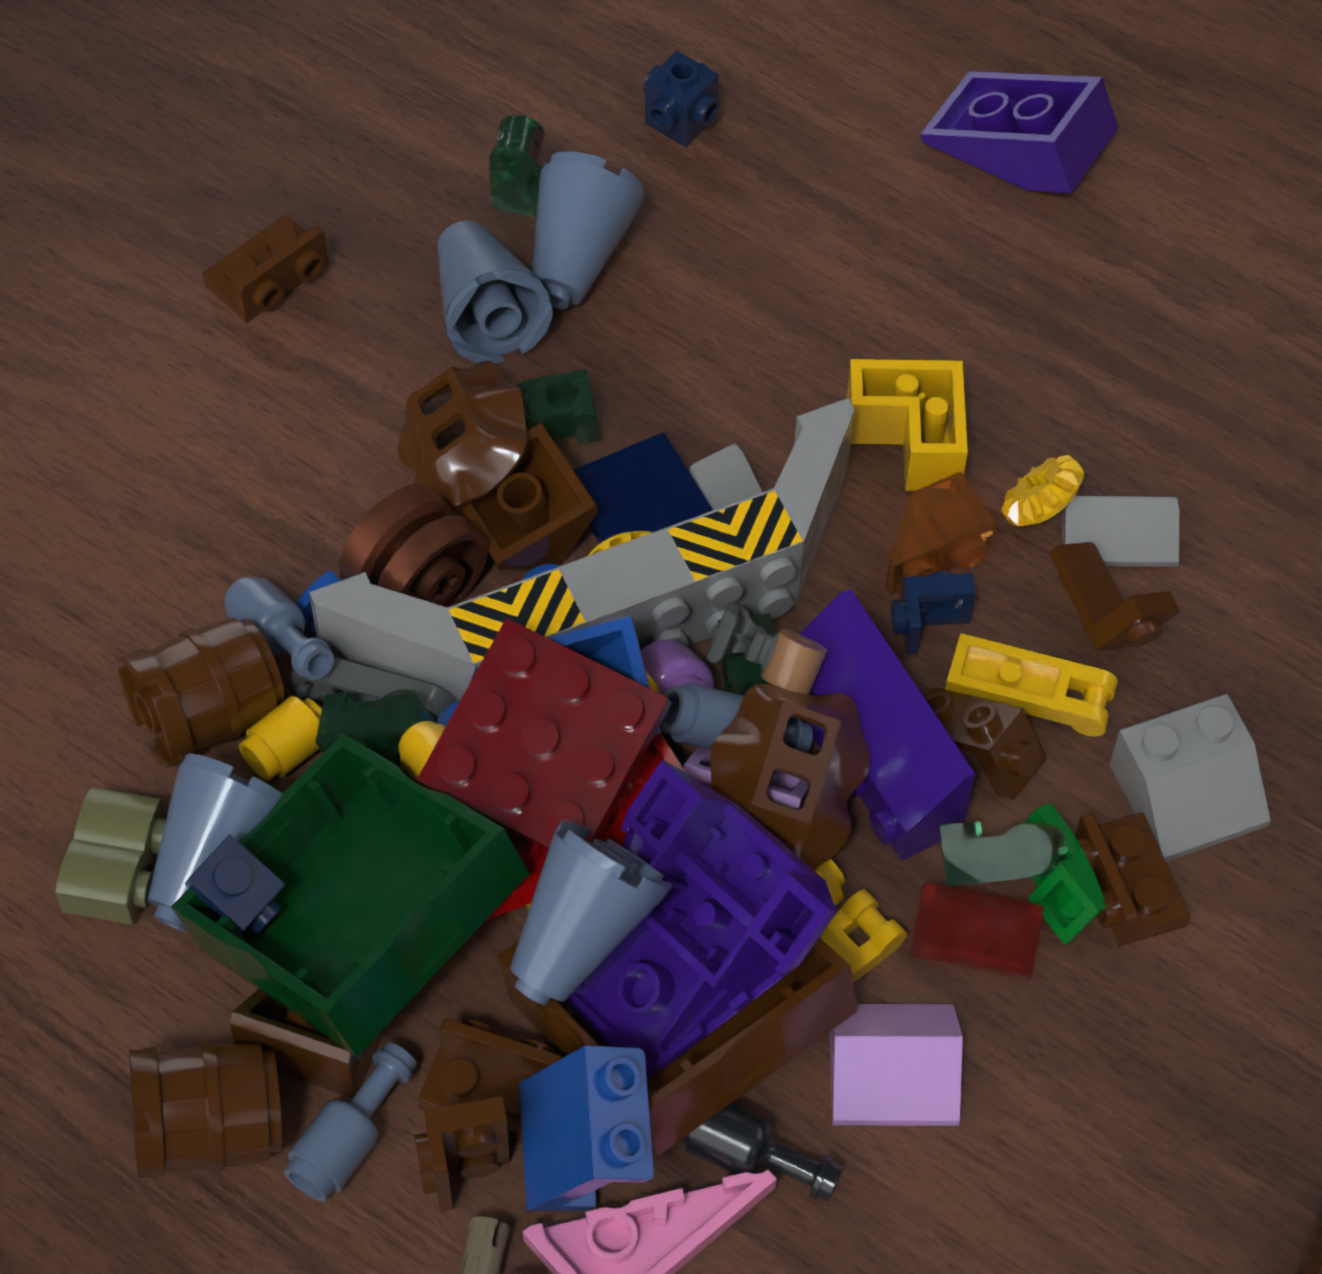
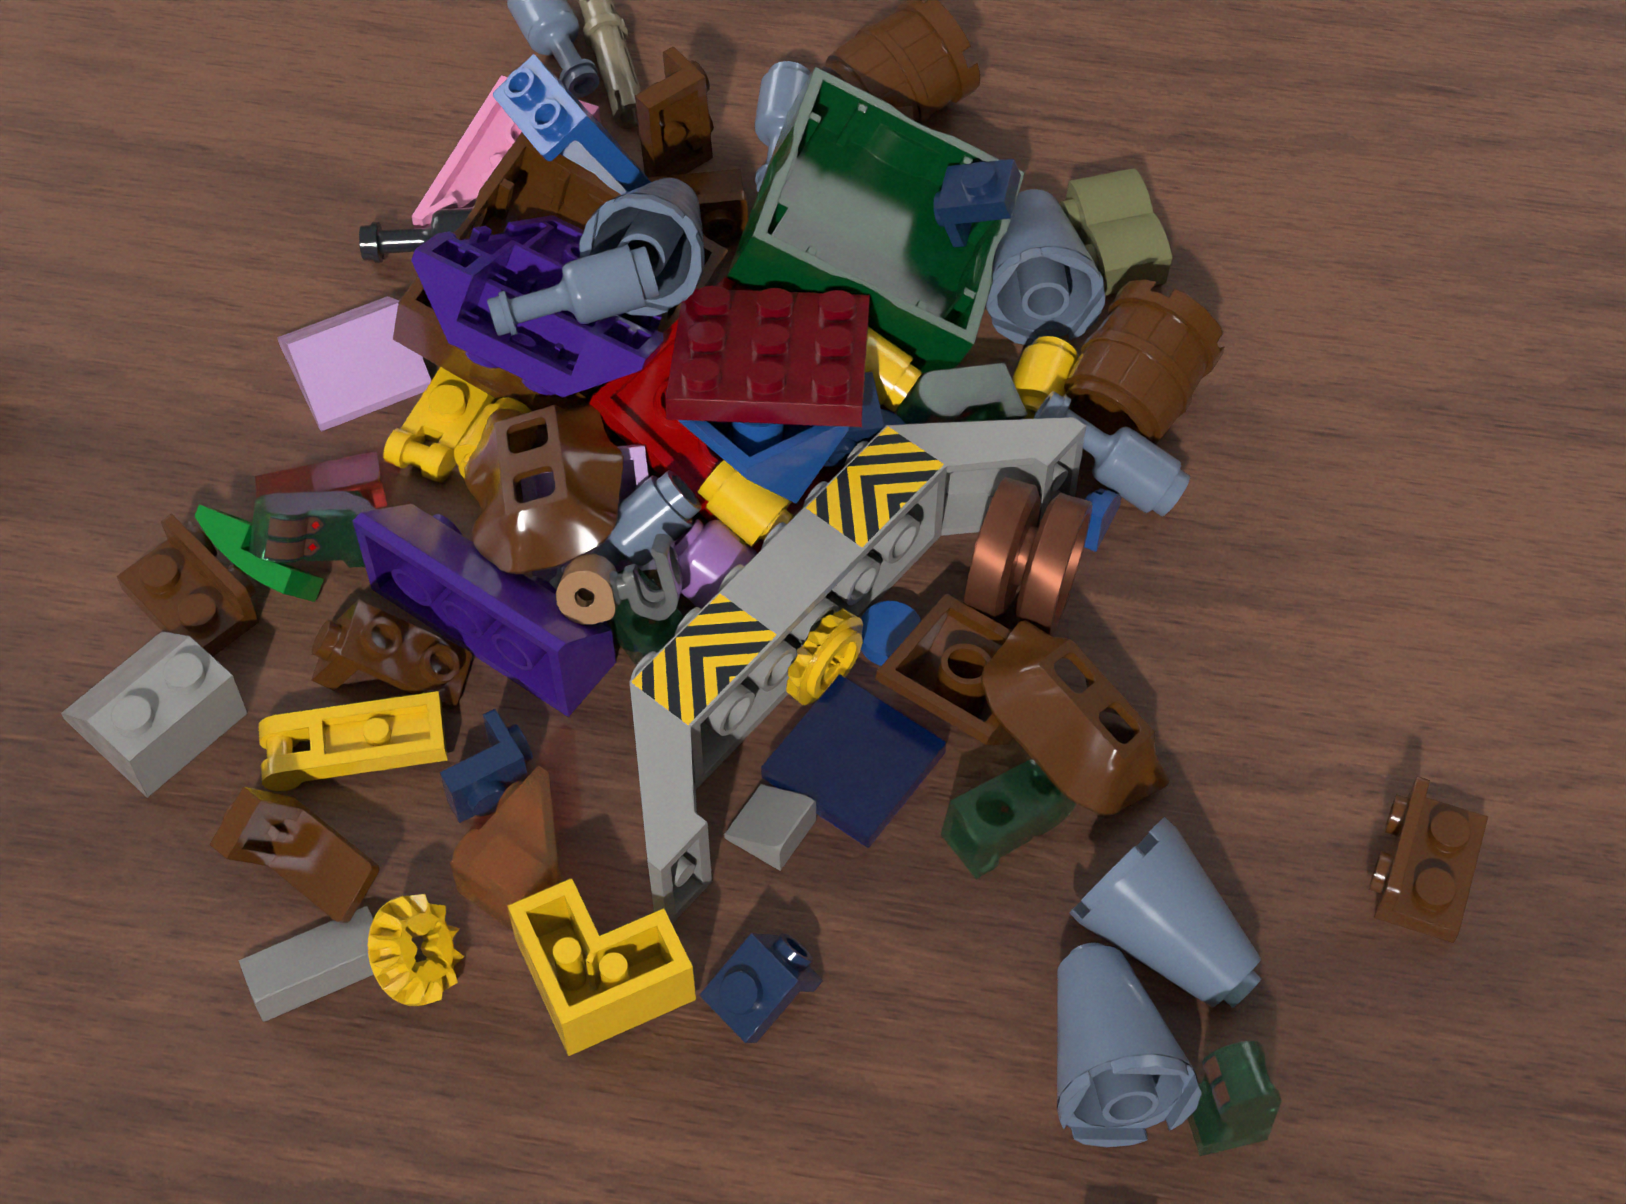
camera: 155 degrees right, 0 degrees up
(680, 836) = (589, 288): none -> sand blue piece
(793, 376) = (760, 983): none -> dark blue bracket

